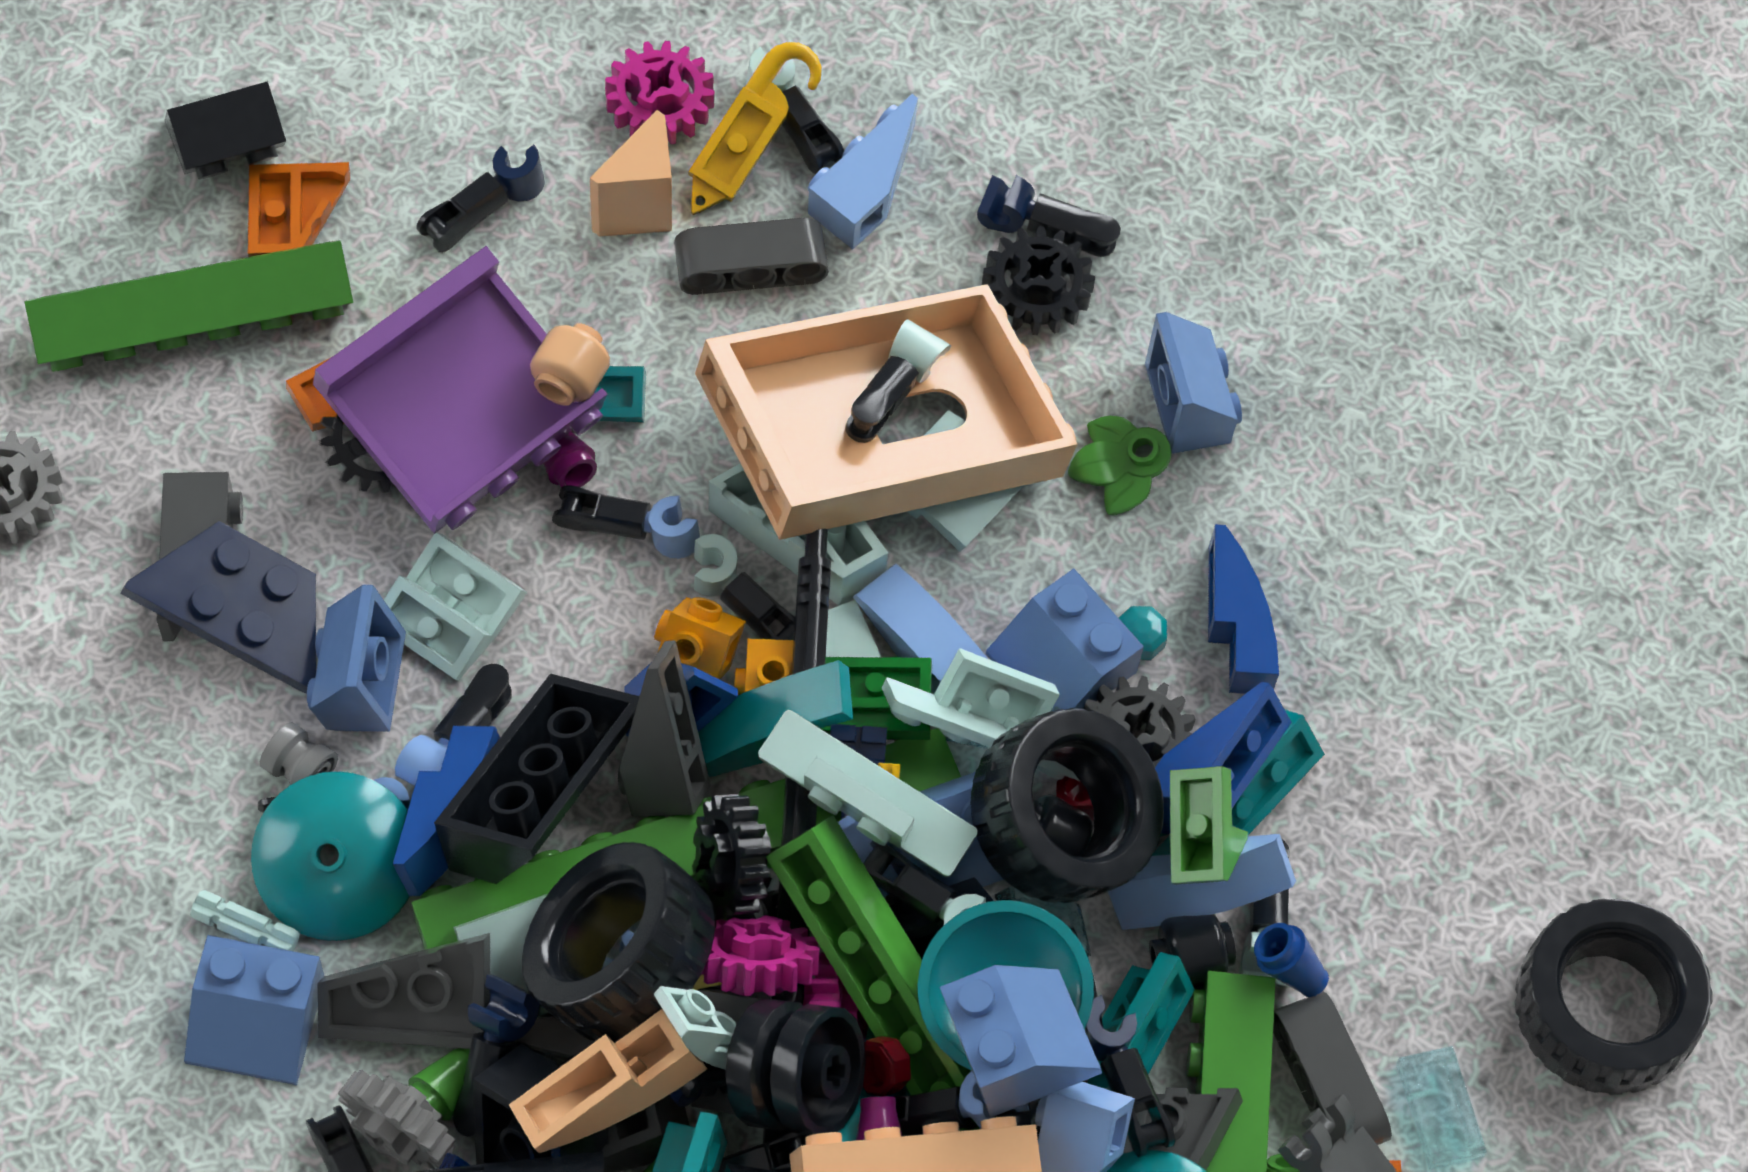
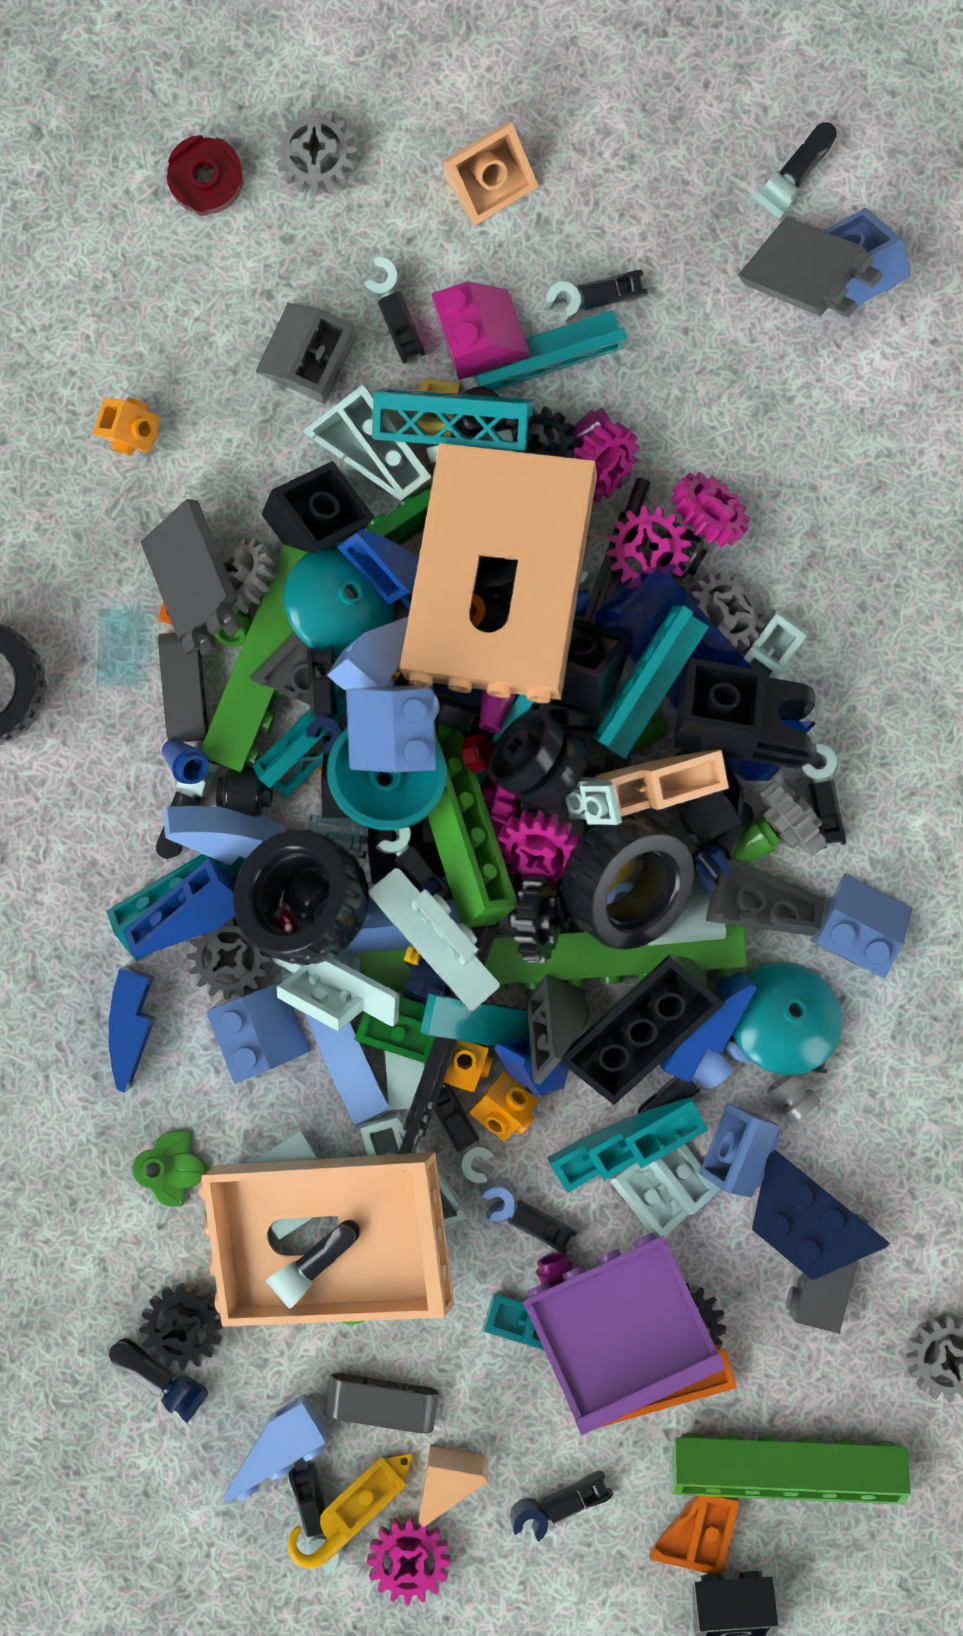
camera: 155 degrees left, 25 degrees up
(243, 922) = (853, 990): light aqua axle -> none
(507, 642) = (629, 1141): none -> teal slope
(569, 364) = (542, 1330): light nougat head -> none
(1148, 628) = (198, 1034): teal tile -> none
(1190, 385) = (101, 1208): medium blue slope -> none
(1201, 826) = (216, 852): bright green slope -> none

